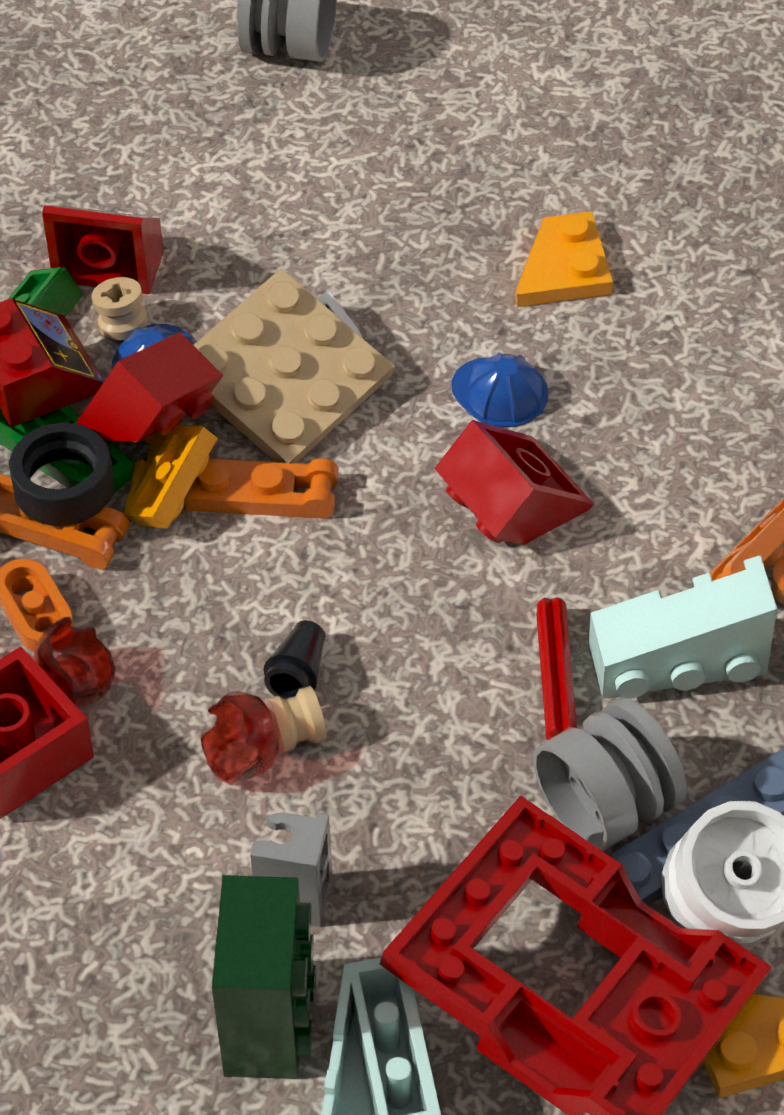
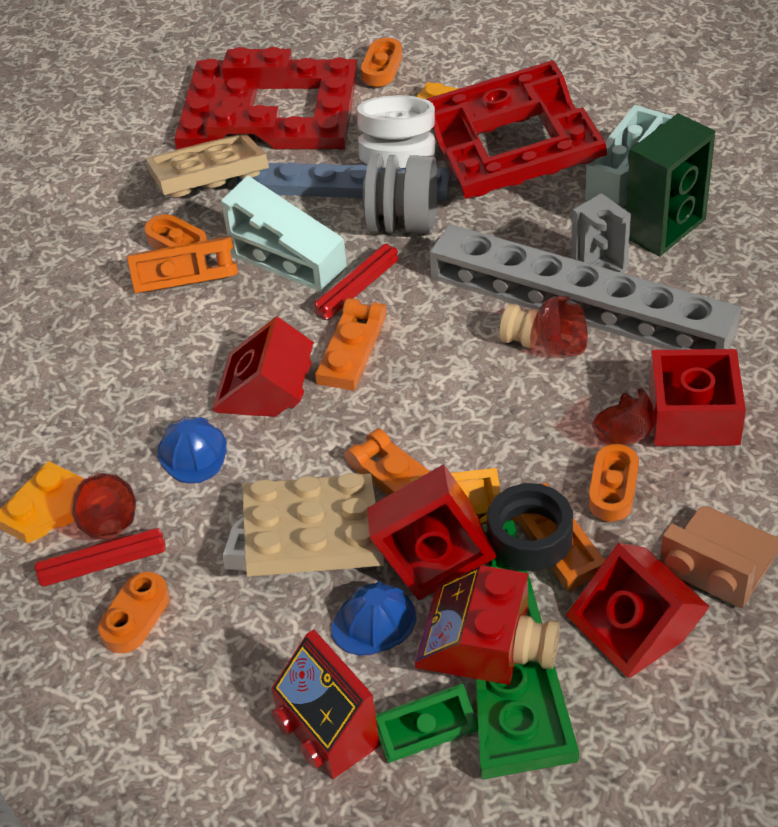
camera: 135 degrees left, 5 degrees down
(119, 307) = (370, 667): tan wheel -> none
(239, 798) = (608, 298): none -> light grey brick
(295, 661) = (488, 357): black cone -> none
(369, 234) = (135, 608): none -> orange plate
(454, 250) = (100, 557): none -> red axle
(471, 591) = (351, 345): none -> orange plate
(494, 263) = (103, 506): none -> clear red hair

